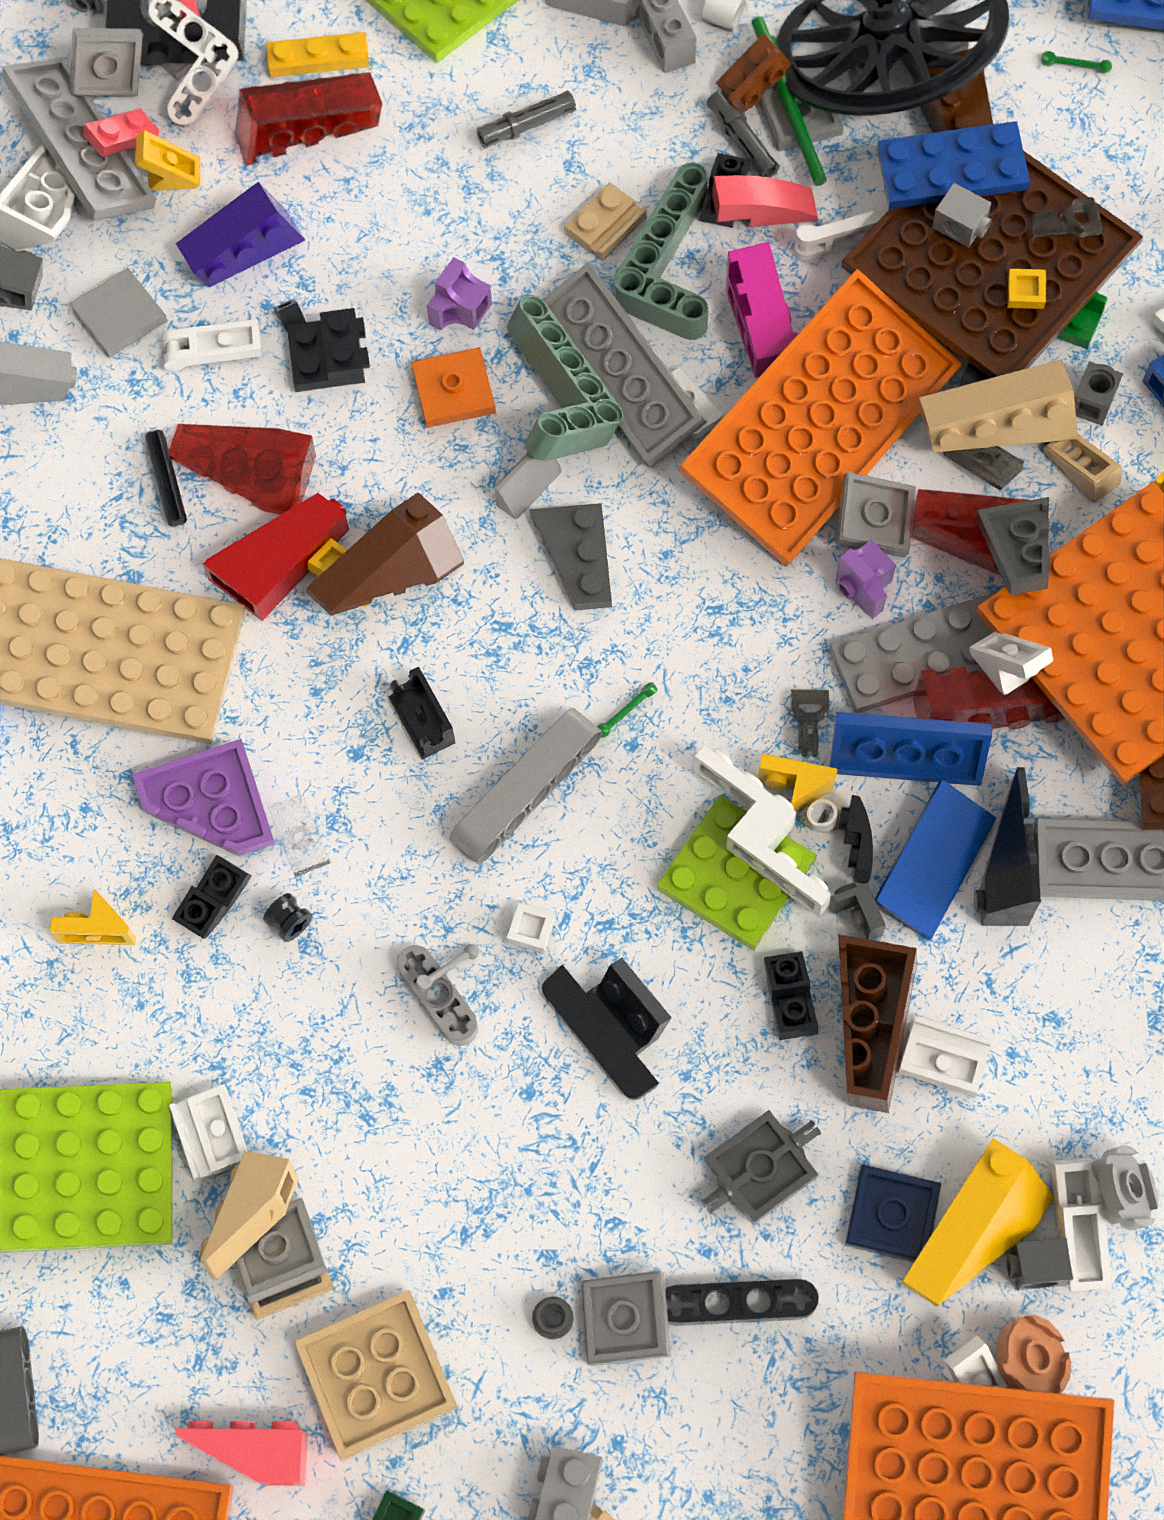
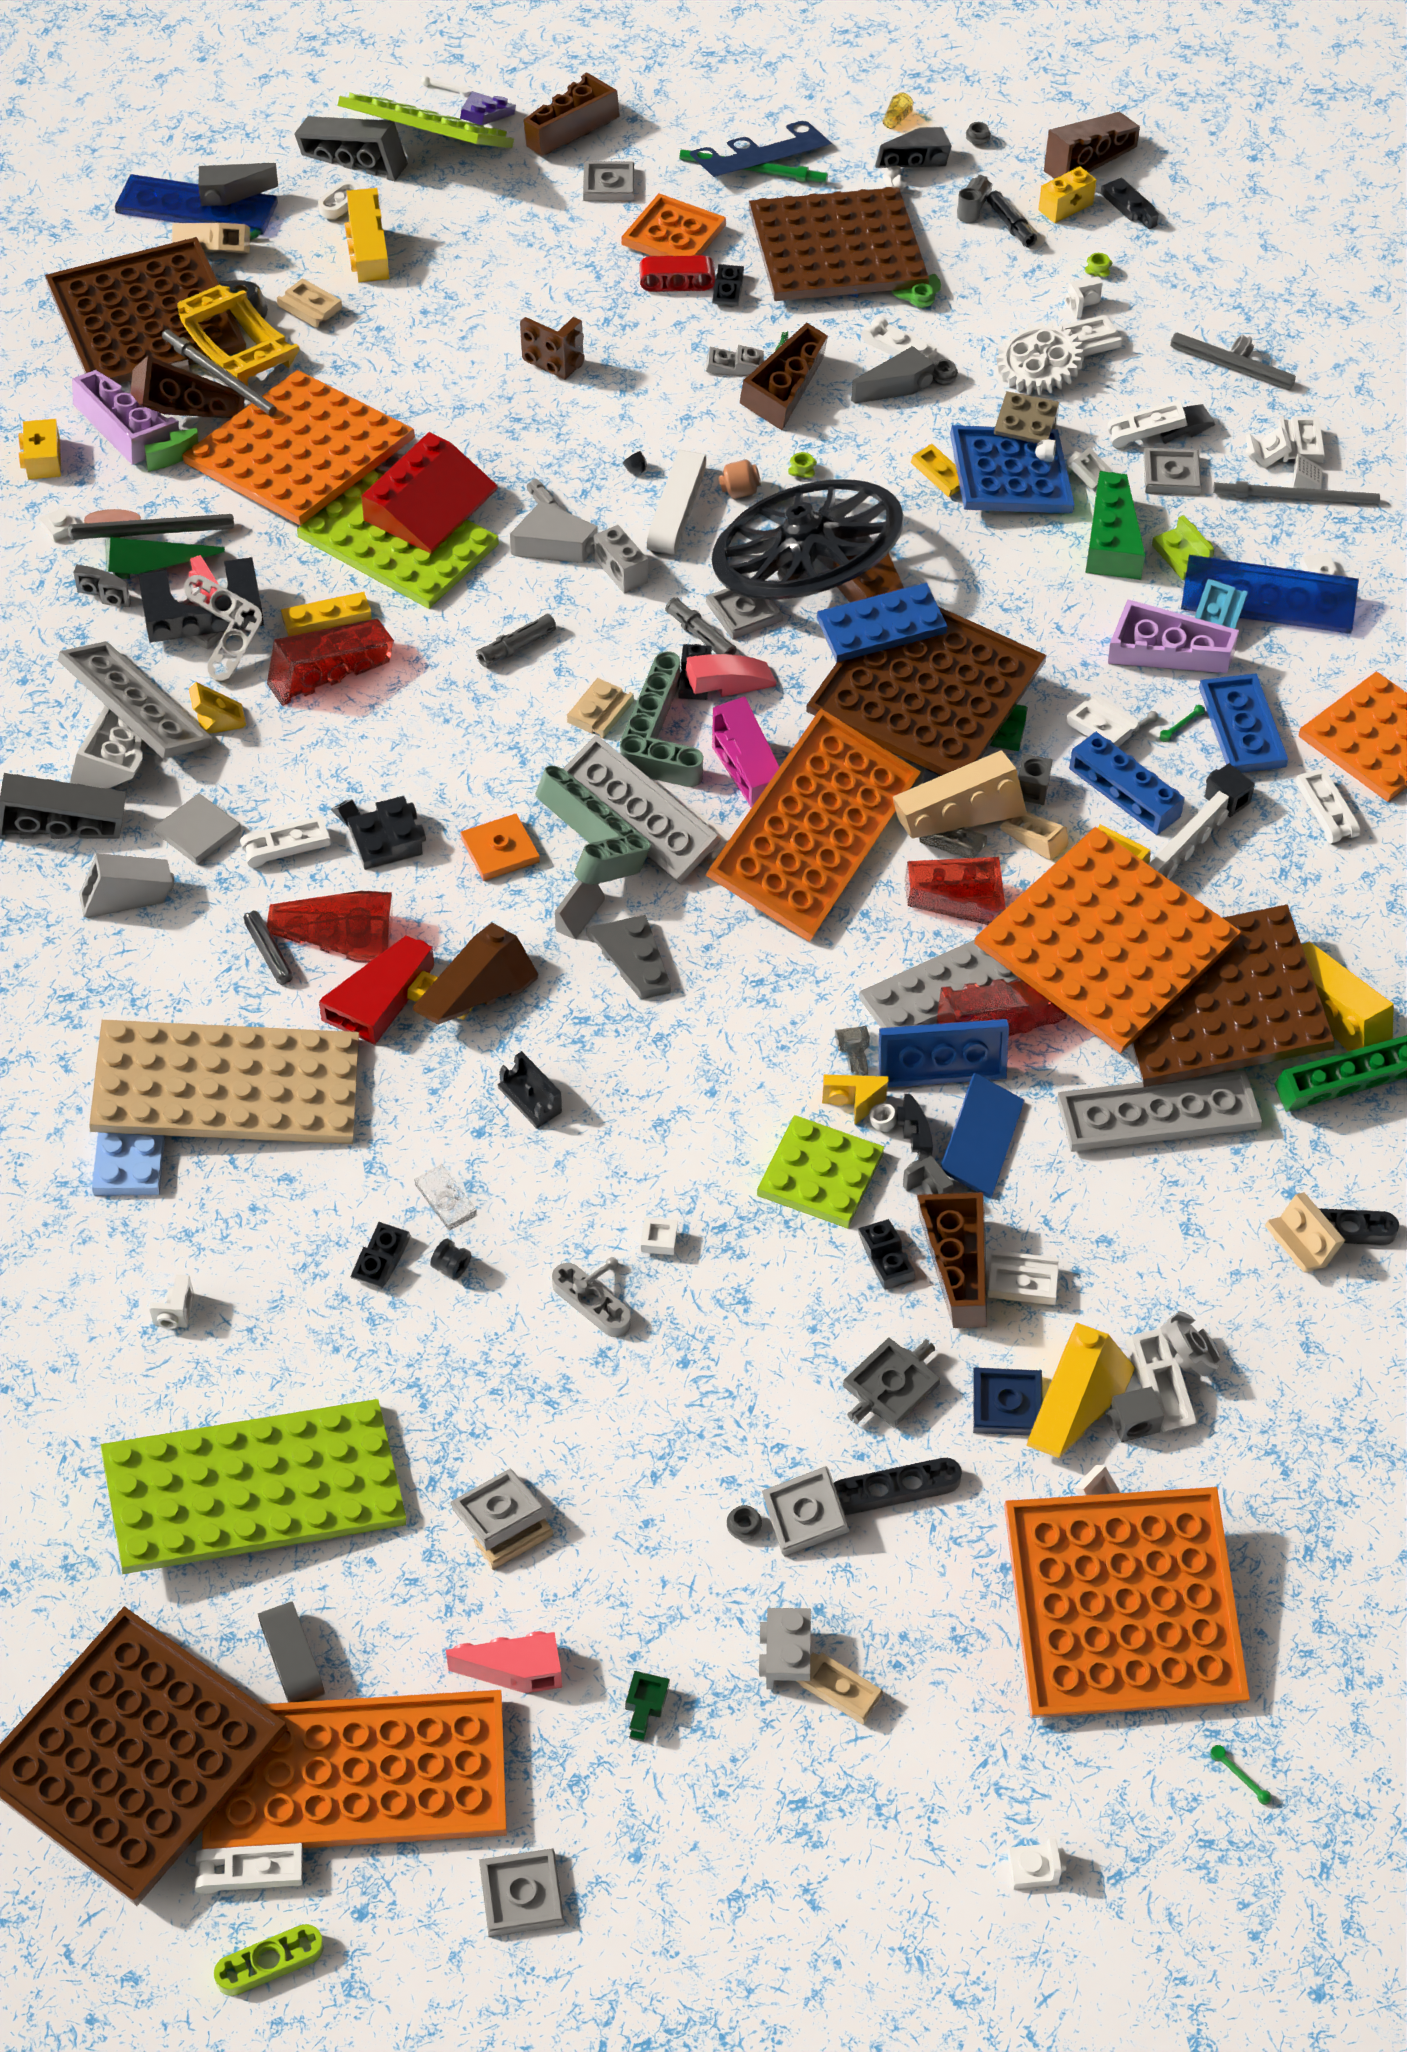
camera: 15 degrees left, 15 degrees down
(101, 928) = (292, 1292): yellow slope -> none
(105, 62) = (148, 636): light grey tile -> none
(118, 131) = (167, 691): coral plate -> none
(209, 798) = (362, 1180): medium lavender plate -> none
(209, 1132) = (421, 1431): white plate -> none
(239, 236) = (292, 755): dark purple wedge -> none
(253, 1205) = (473, 1474): tan slope -> none
(375, 1375) = (604, 1589): tan plate -> none
(458, 297) = (490, 777): medium lavender brick -> none
(525, 785) = (630, 1131): light grey beam -> none
(613, 1022) = (744, 1295): black plate -> none
(647, 691) = (685, 1082): green hinge -> none
(753, 73) = (701, 580): dark orange bracket -> none
(762, 830) = (835, 1129): white bracket -> none
(794, 115) = (709, 564): green bar -> none
(835, 236) = (793, 693): white plate -> none
(864, 575) = (877, 937): medium lavender brick -> none
(875, 512) = (875, 891): light grey tile -> none
(962, 215) = (898, 656): light grey brick -> none
(1010, 659) = (1010, 971): white slope -> none
(1011, 877) = (1048, 1130): black wedge -> none
(1018, 543) = (997, 884): dark grey wing -> none
(1026, 288) = (961, 703): yellow plate -> none
(1032, 1355) = (1141, 1472): nougat tile -> none
(1047, 222) = (967, 653): clear smoke piece -> none
(1049, 59) = (939, 544): green hinge -> none

